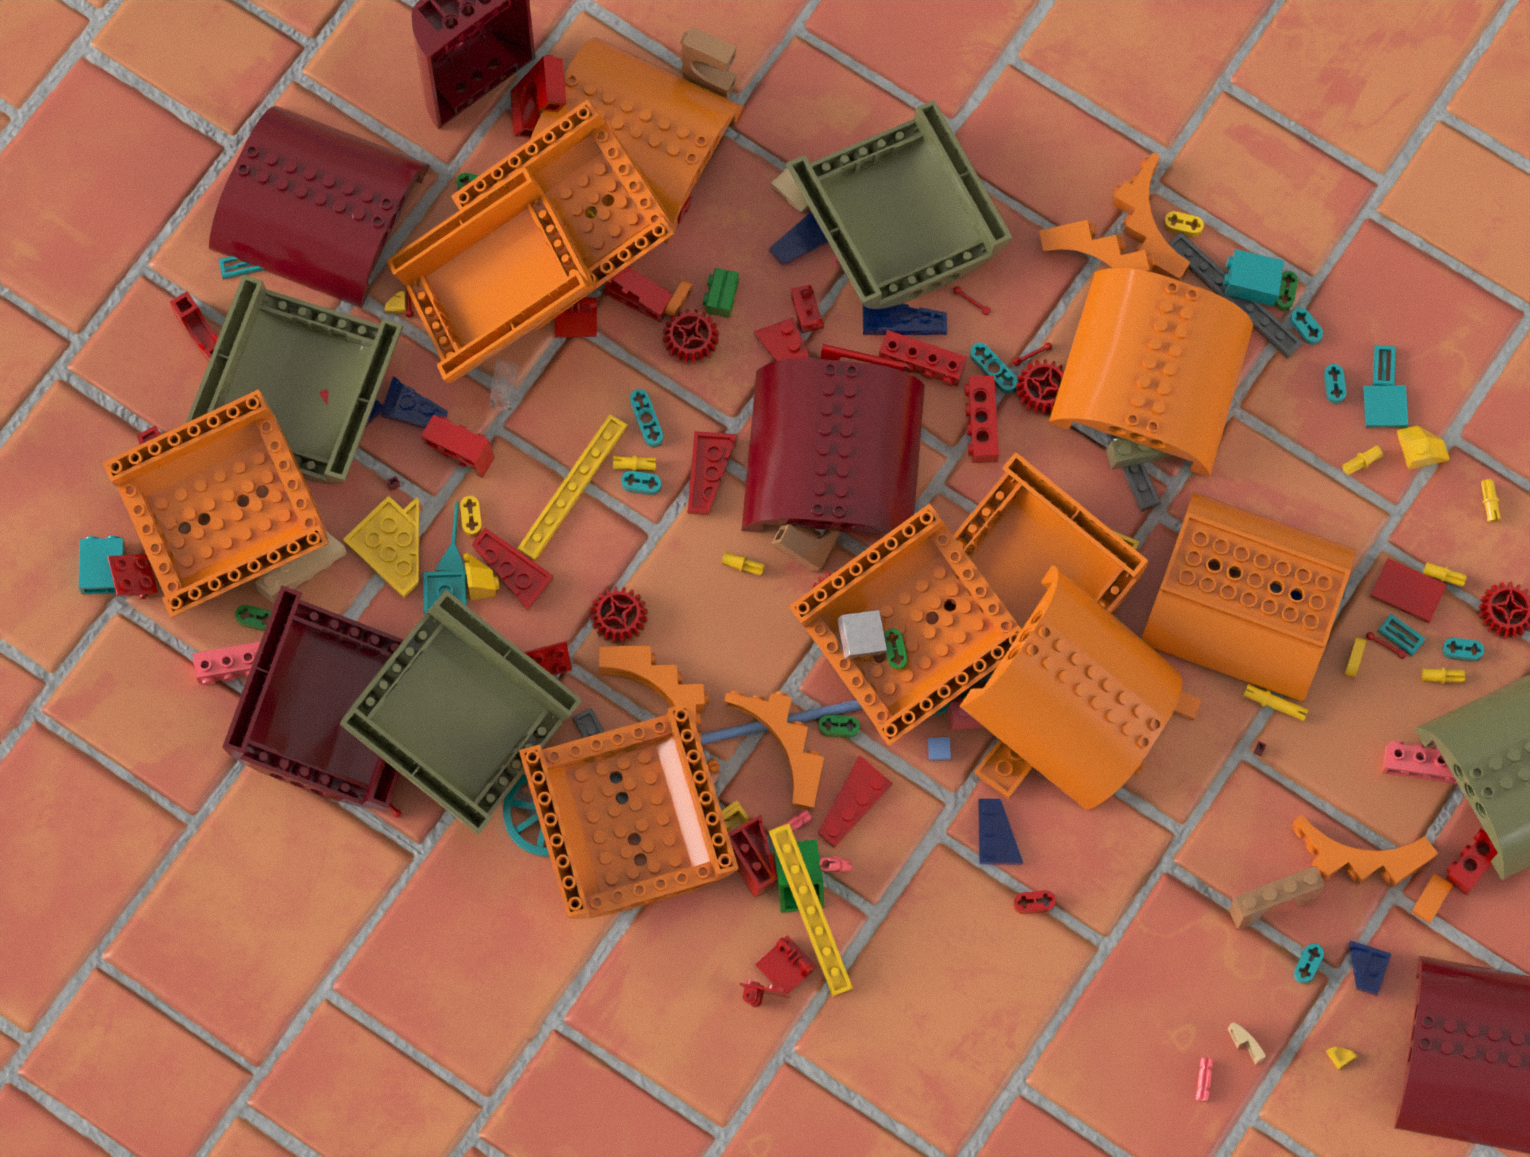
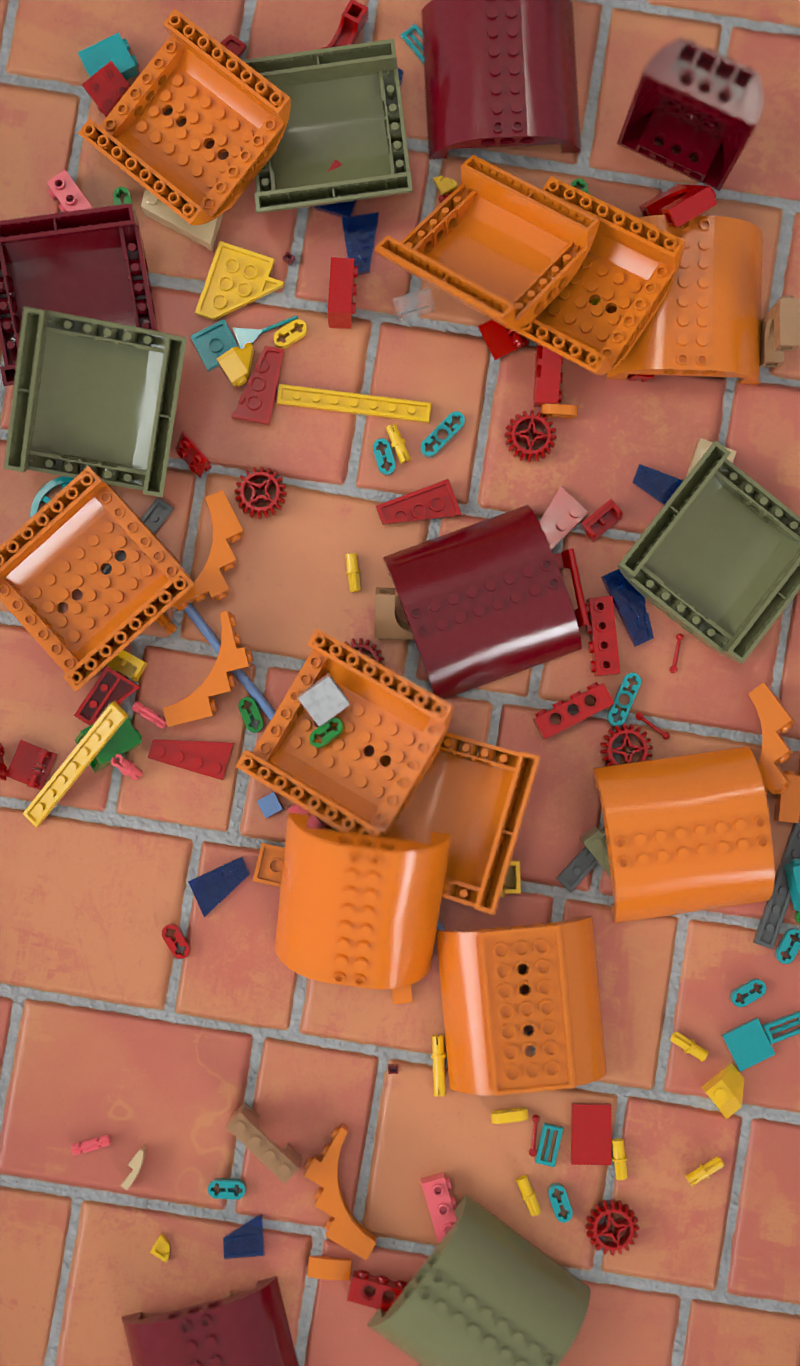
camera: 60 degrees right, 15 degrees up
(722, 292) = (581, 443): green brick -> none

